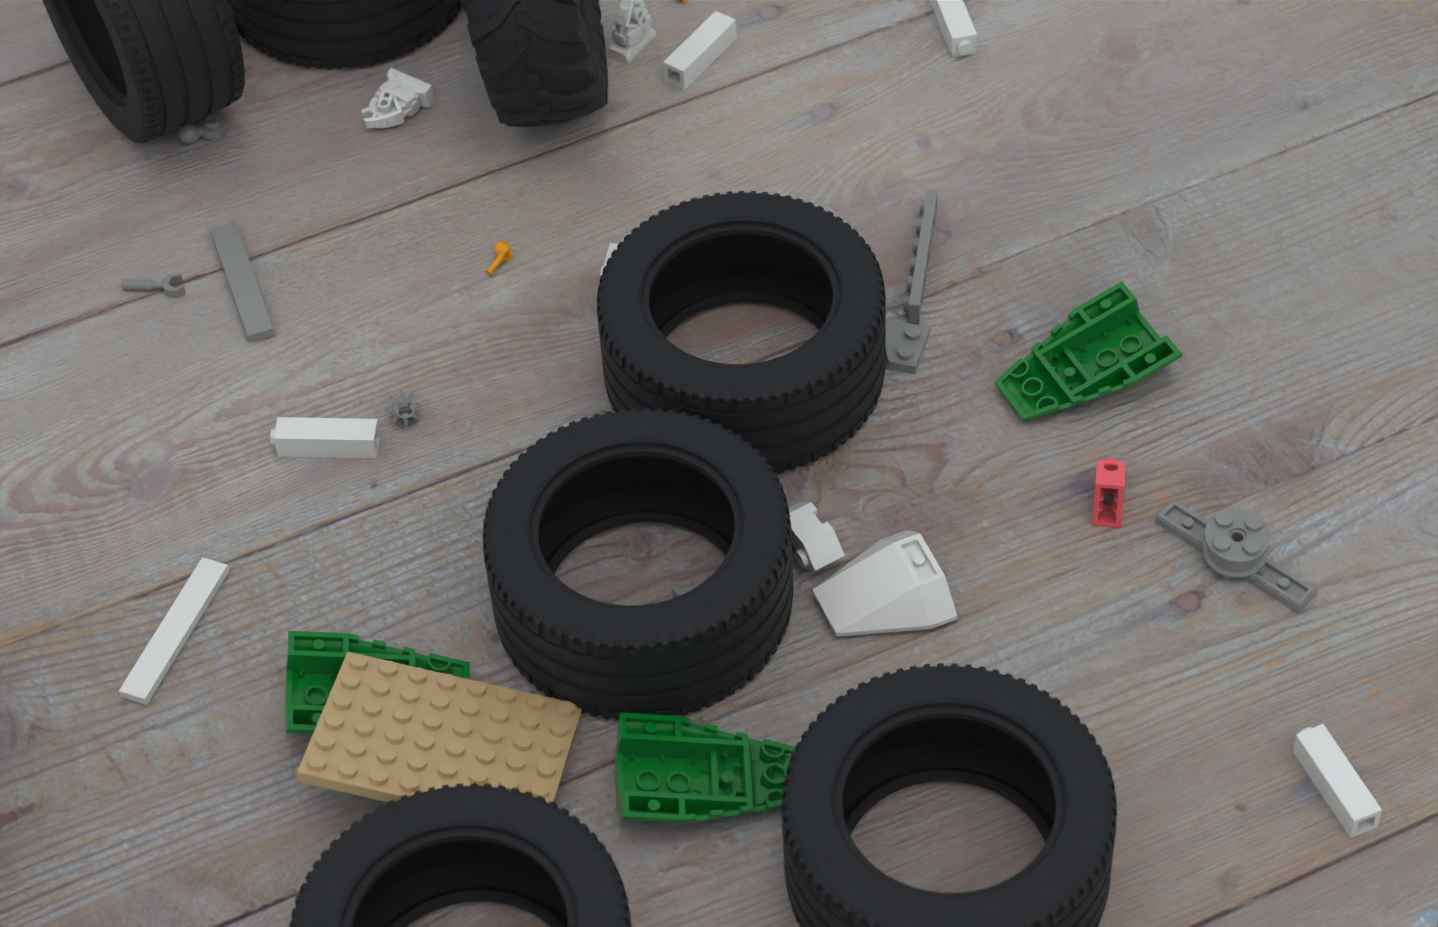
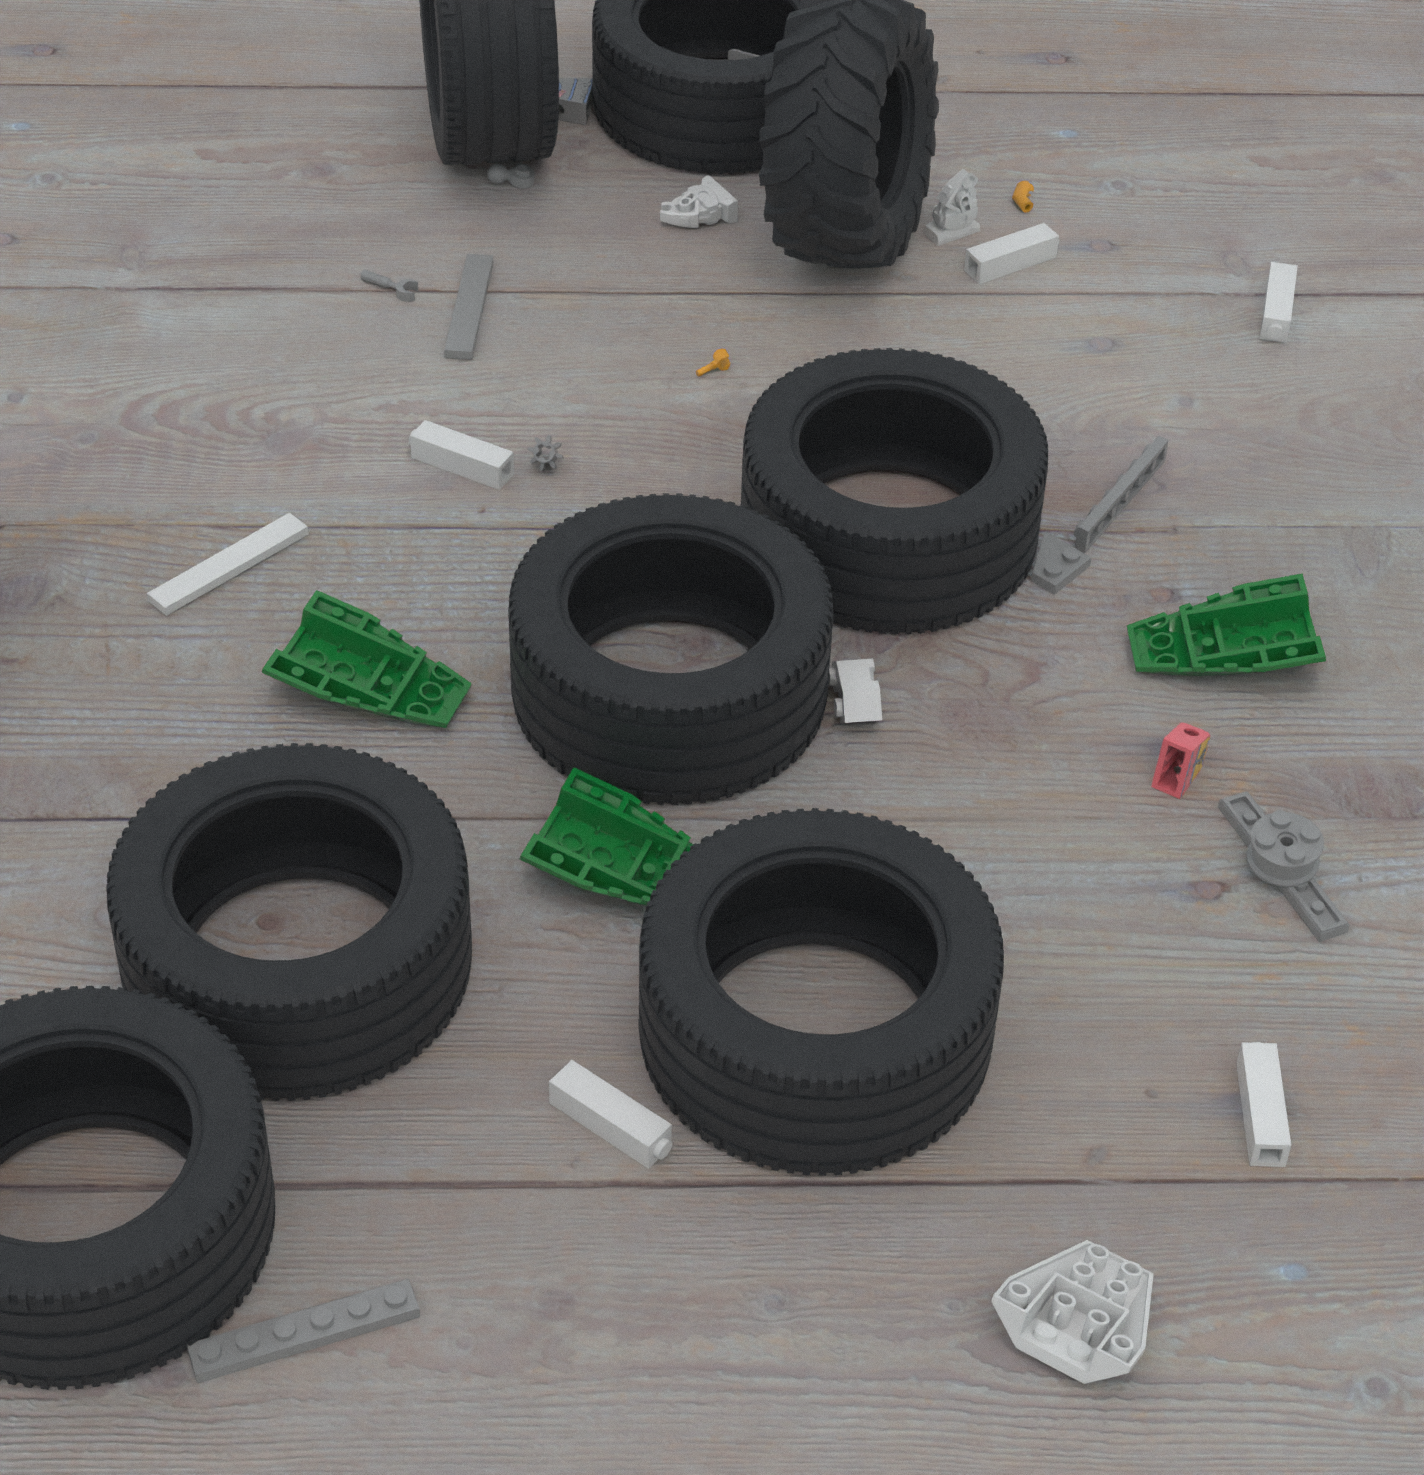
camera: 20 degrees right, 5 degrees down
(417, 729) = (384, 705): tan plate -> none
(887, 590) = (906, 767): white wedge -> none

